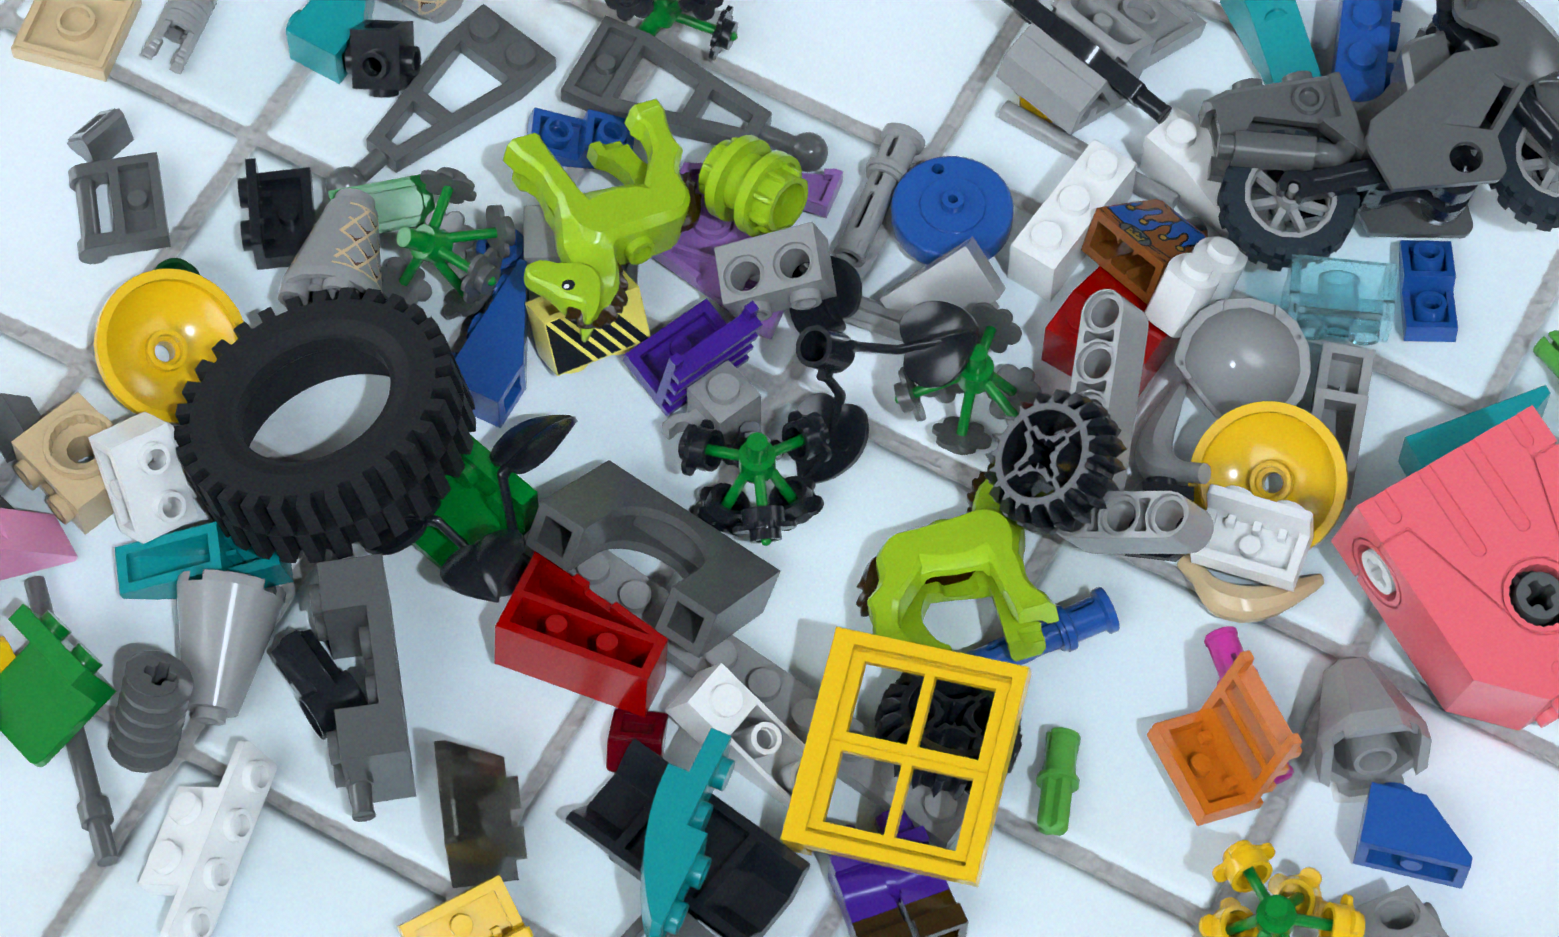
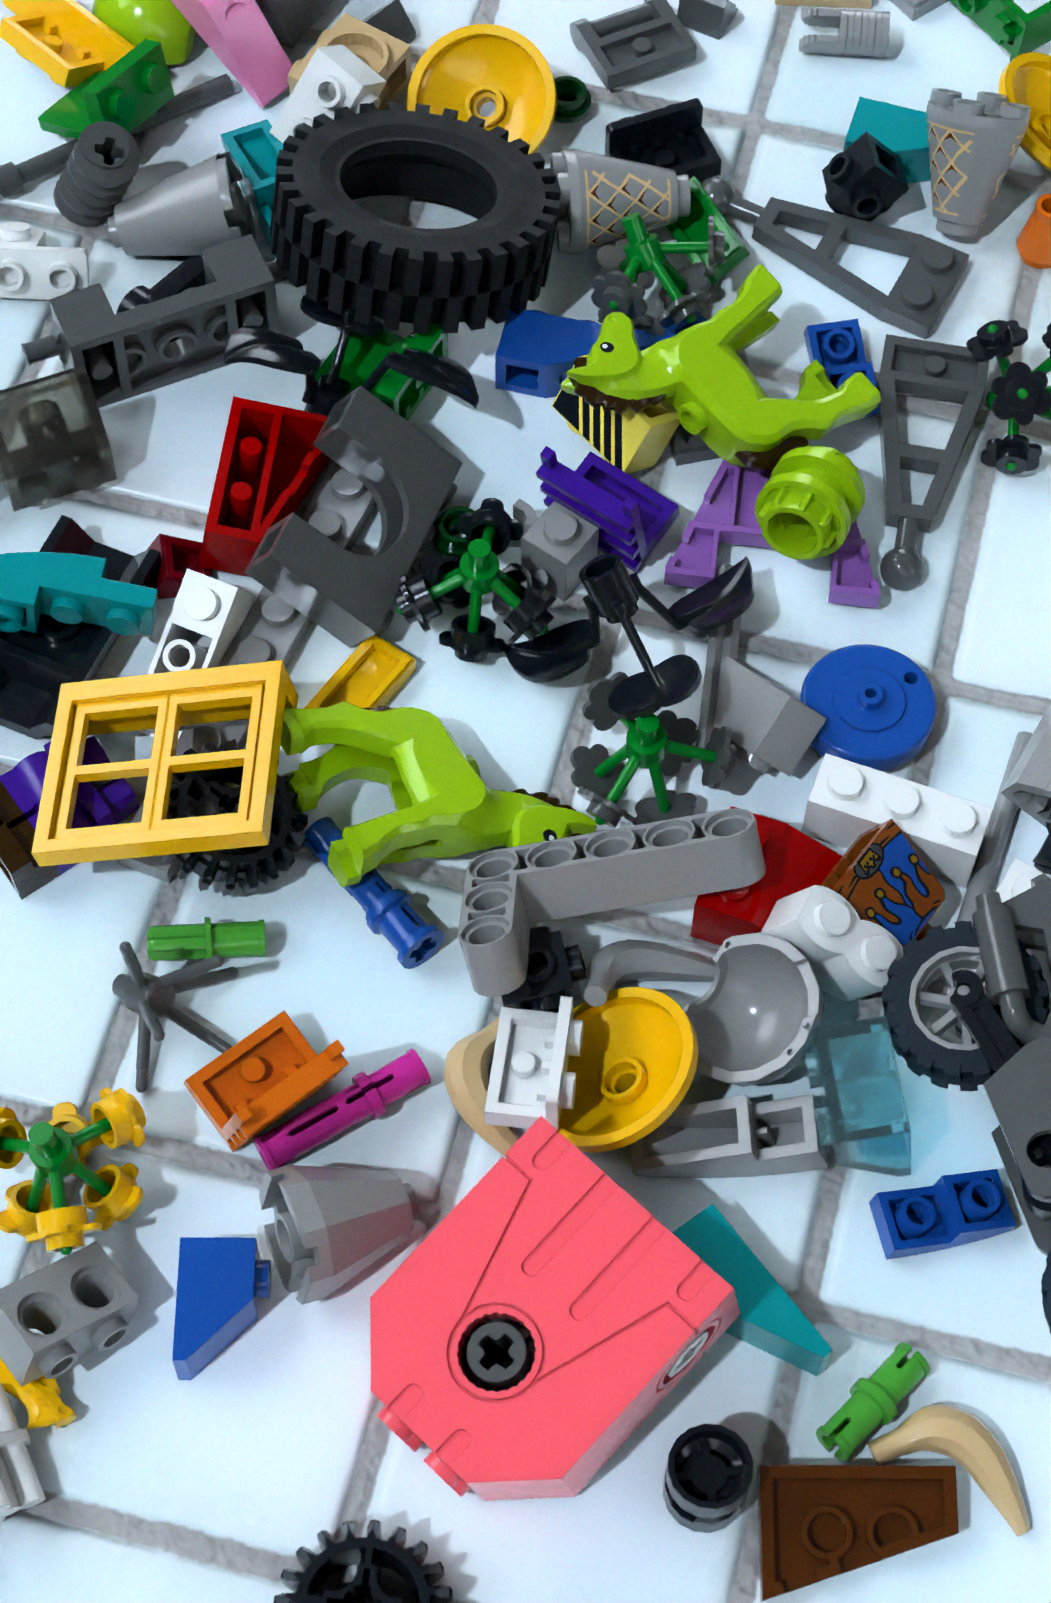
camera: 75 degrees right, 0 degrees up
(671, 476) = (447, 527): none -> dark green plate
(775, 259) = (709, 541): light grey brick -> none
(814, 605) = (367, 676): none -> yellow tile
(883, 174) = (917, 641): light grey pin -> none
(1073, 462) = (536, 824): black gear -> none
(1111, 836) = (154, 998): none -> dark grey plant

